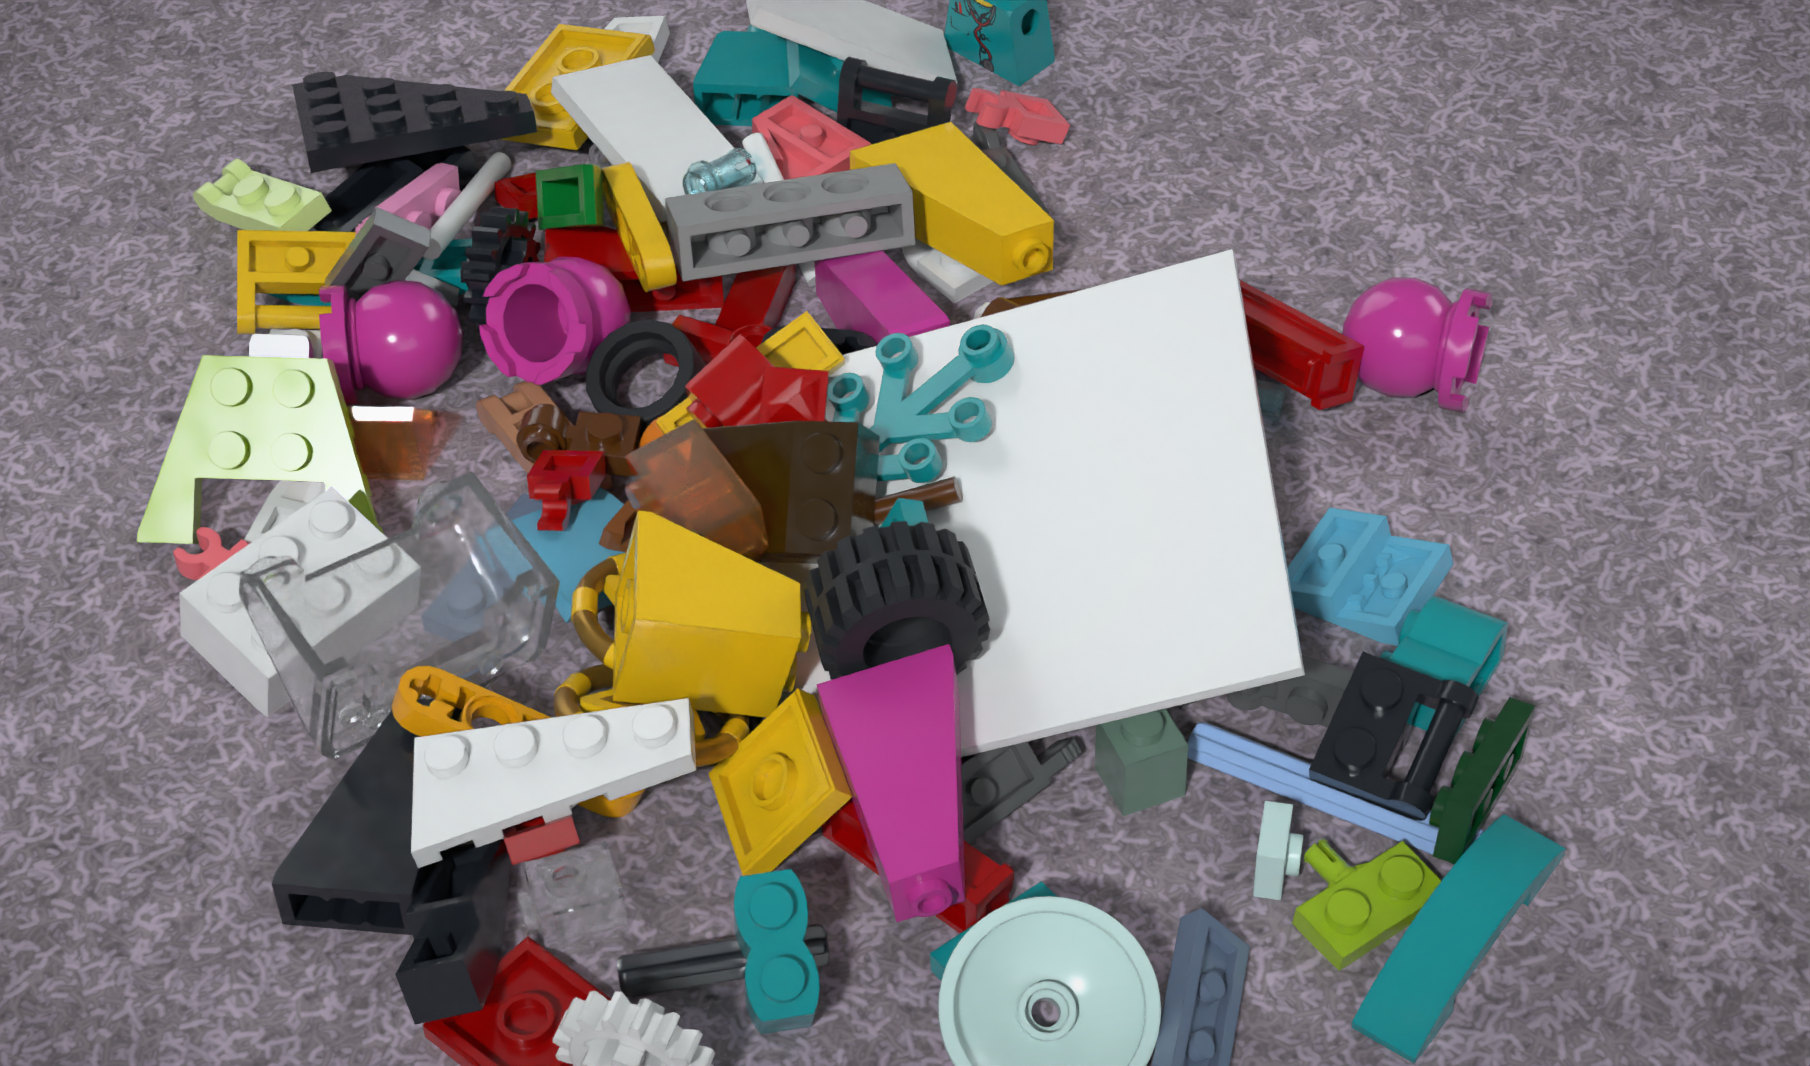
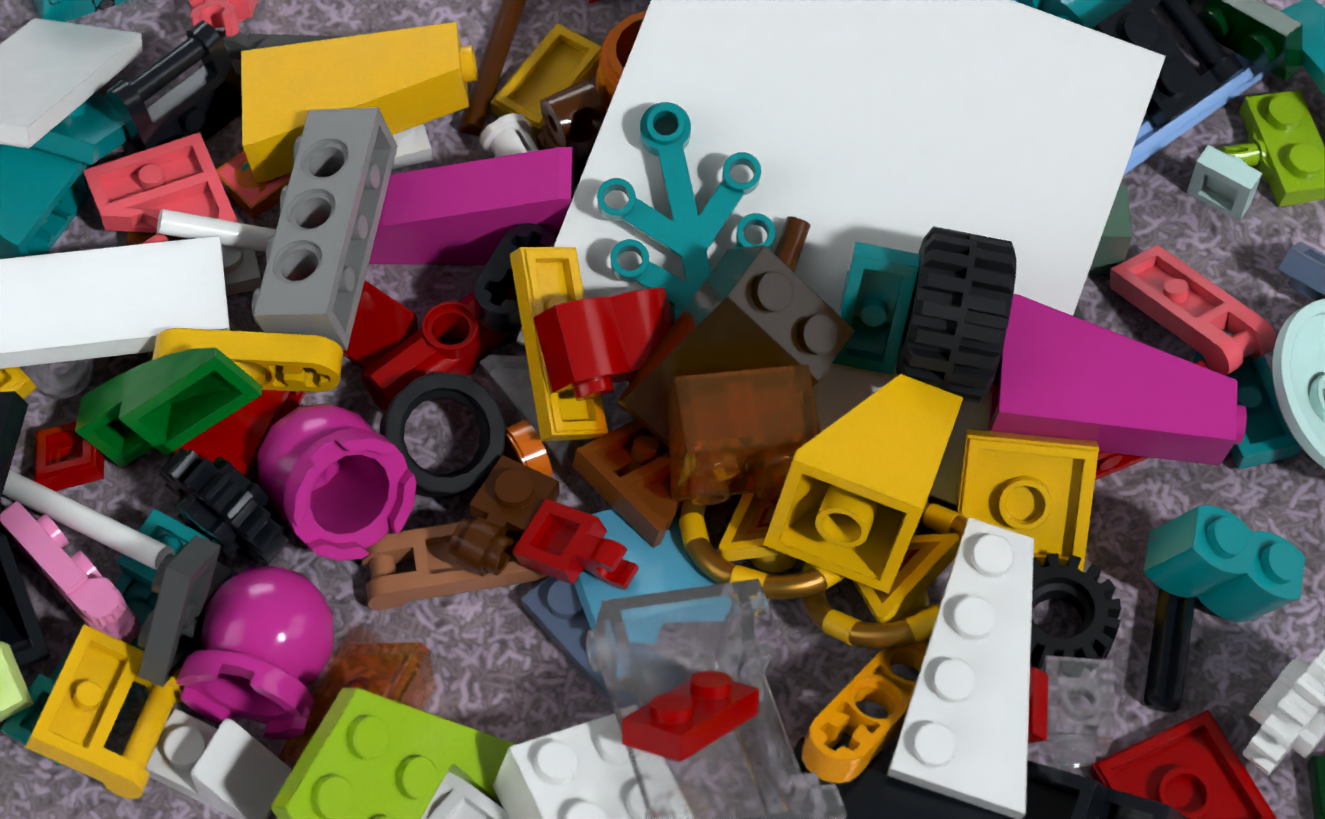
camera: 70 degrees left, 15 degrees up
(408, 587) = (690, 716): none -> red plate
(676, 831) = (1091, 600): none -> black tyre
(719, 173) = (230, 273): clear light blue pin -> none
(793, 395) = (650, 299): red tile -> none
(1086, 851) = (1193, 309): none -> coral plate

